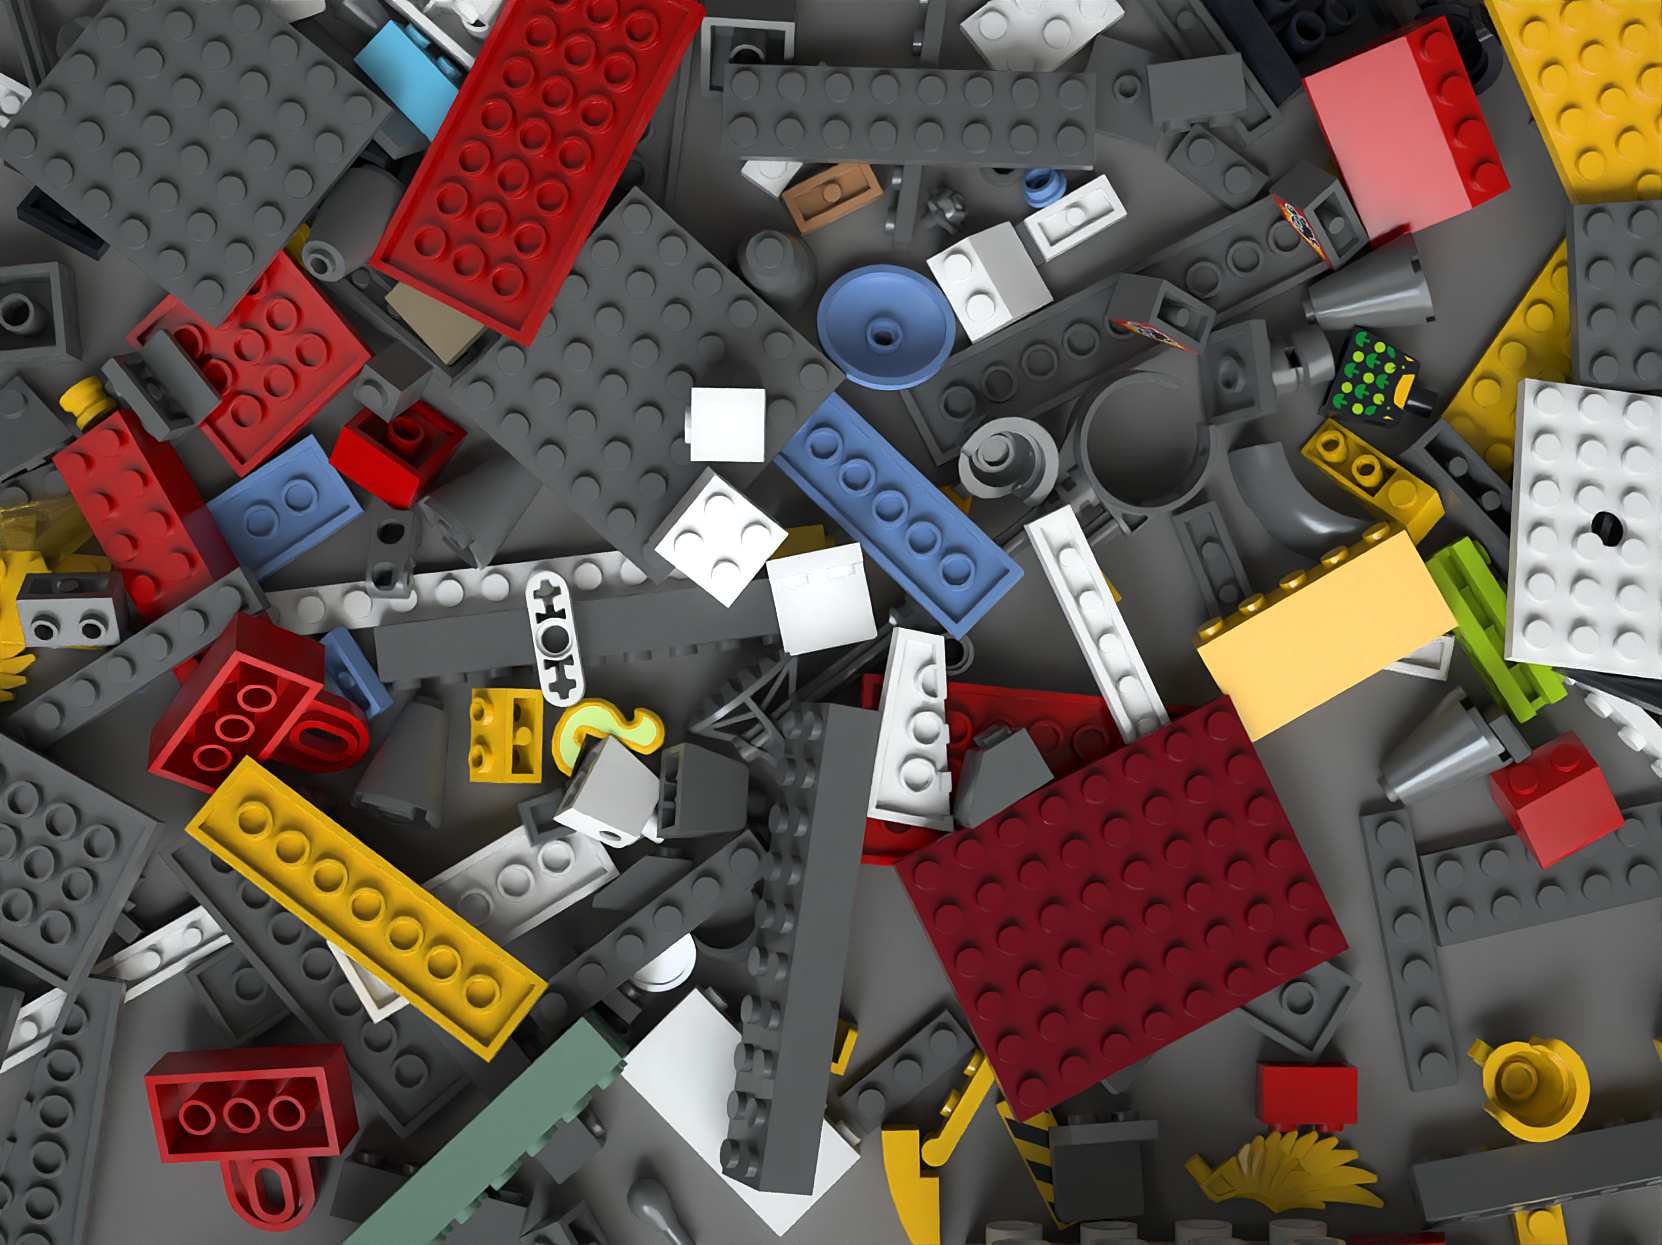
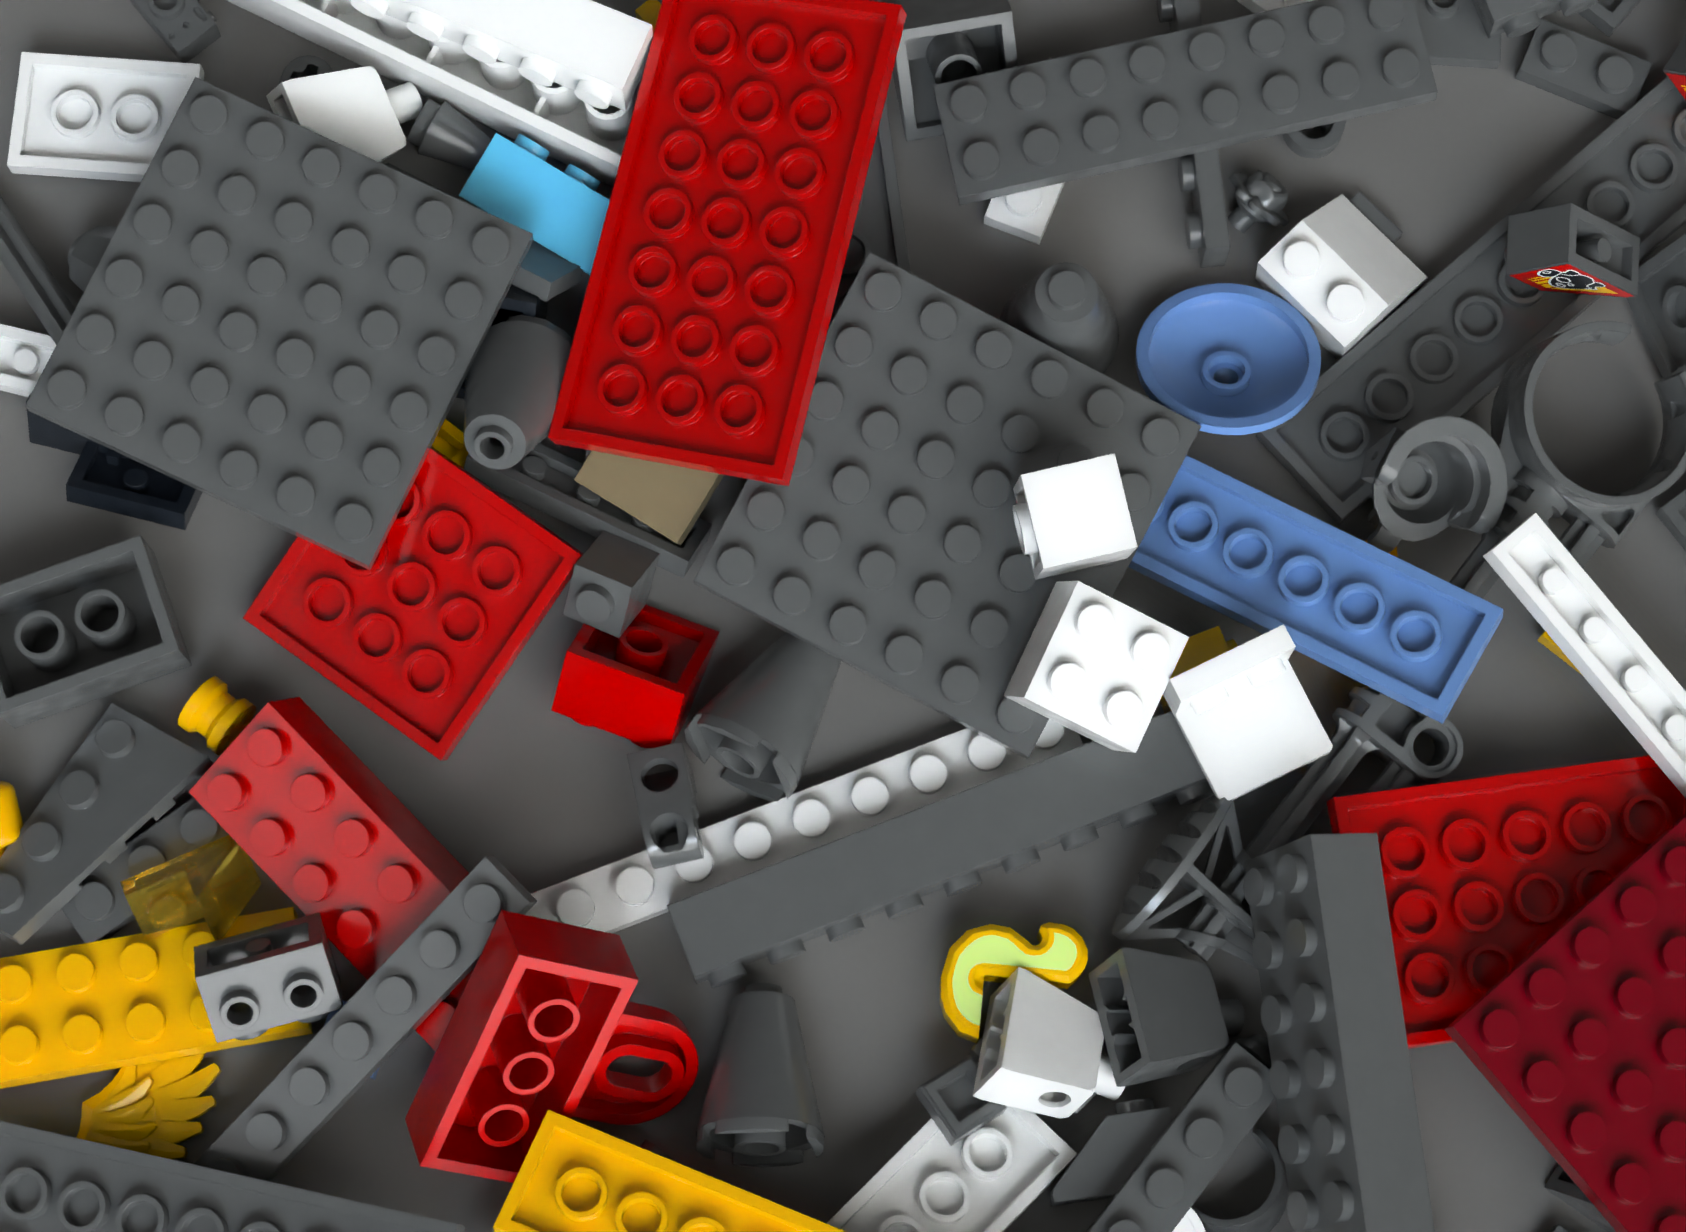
camera: 15 degrees left, 10 degrees down
(162, 388) = (314, 662): dark grey bracket -> none
(284, 508) = (508, 782): medium blue plate -> none
(352, 674) = (661, 979): medium blue plate -> none
(506, 735) = (873, 1010): yellow brick -> none
(538, 629) = (880, 822): white beam -> none
(831, 195) = (1108, 217): medium nougat plate -> none
(911, 753) = (1428, 888): white wing -> none
(997, 774) = (1547, 877): dark grey slope -> none
(1043, 187) = (1372, 141): medium blue plate -> none
(1075, 217) = (1424, 169): white plate -> none

